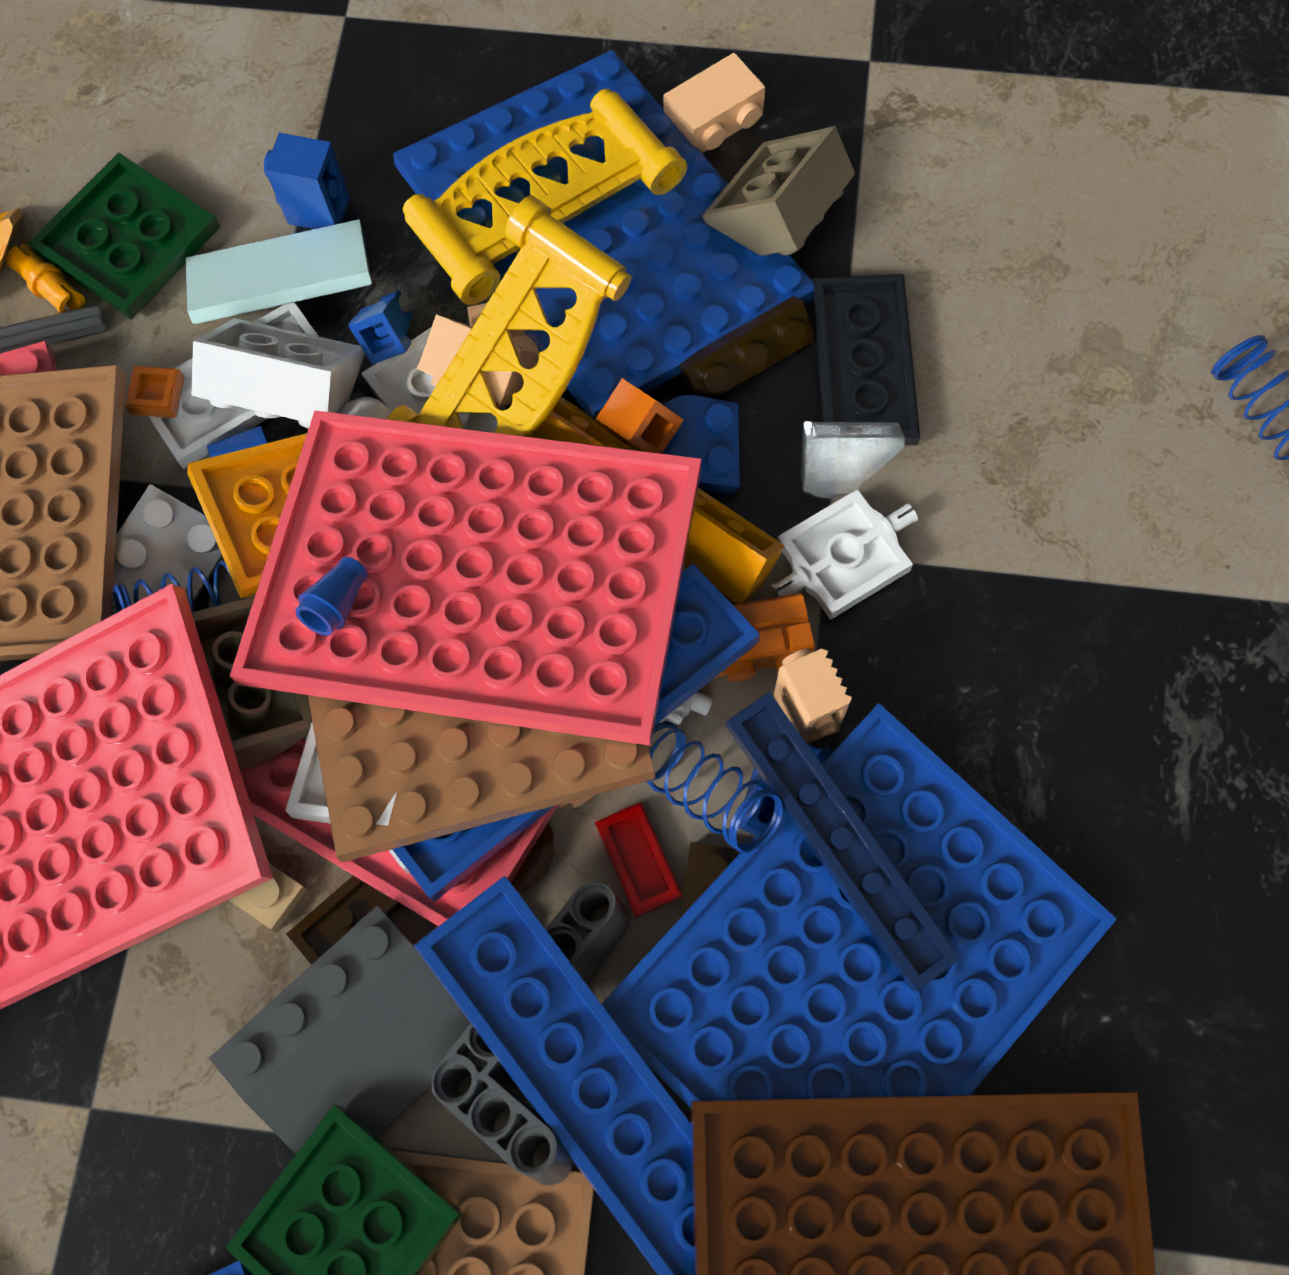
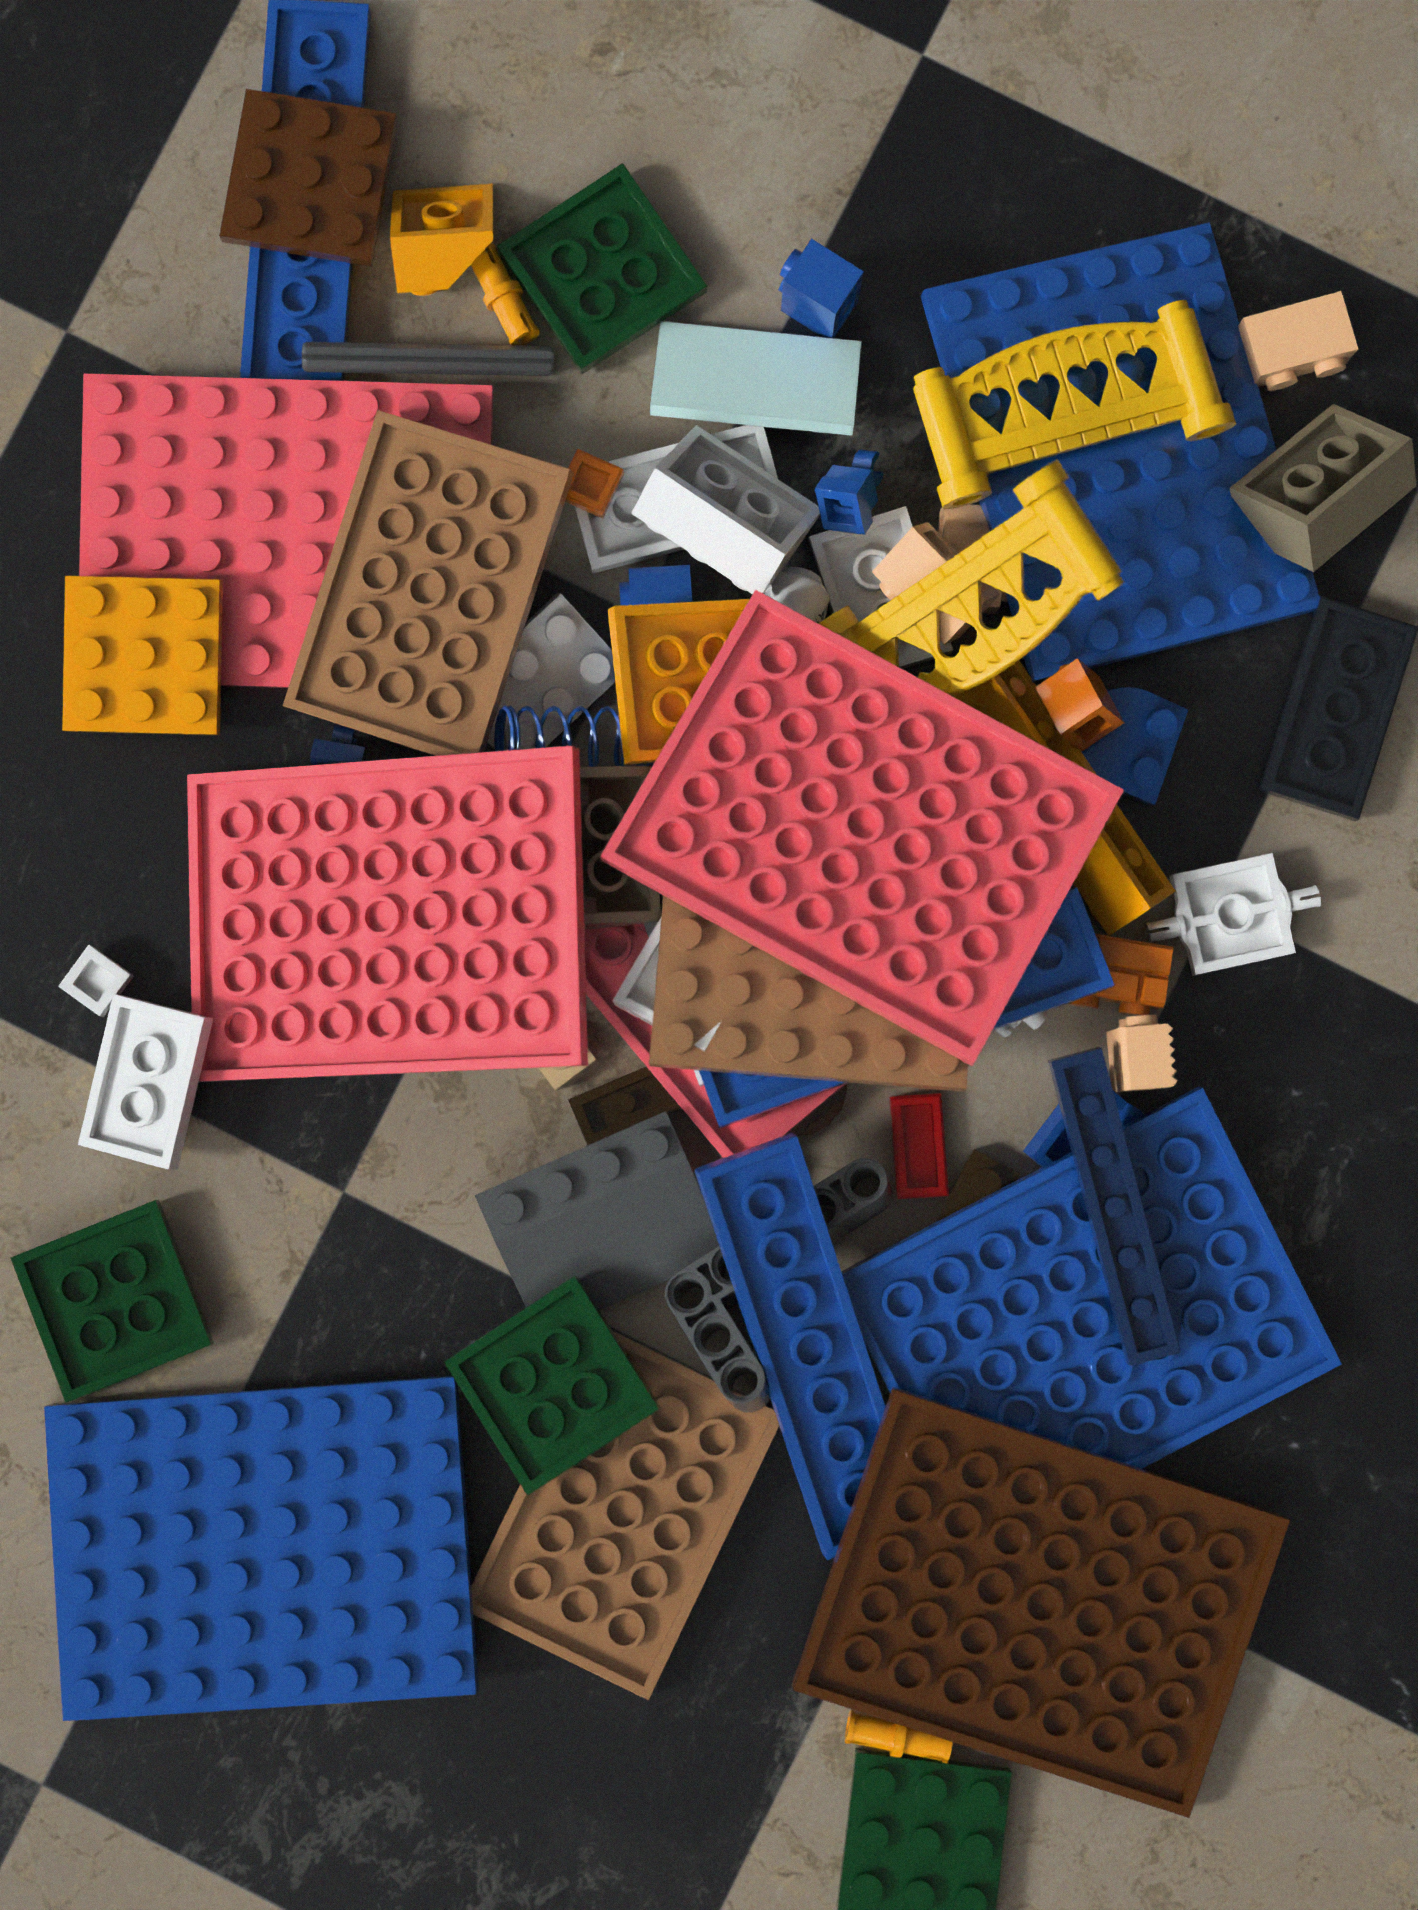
camera: 15 degrees right, 15 degrees up
(331, 598) = (719, 817): blue cone -> none
(680, 746) = (1025, 1159): blue piece -> none
(748, 349) = (1221, 655): dark brown plate -> none
(845, 454) = (1276, 814): clear slope -> none

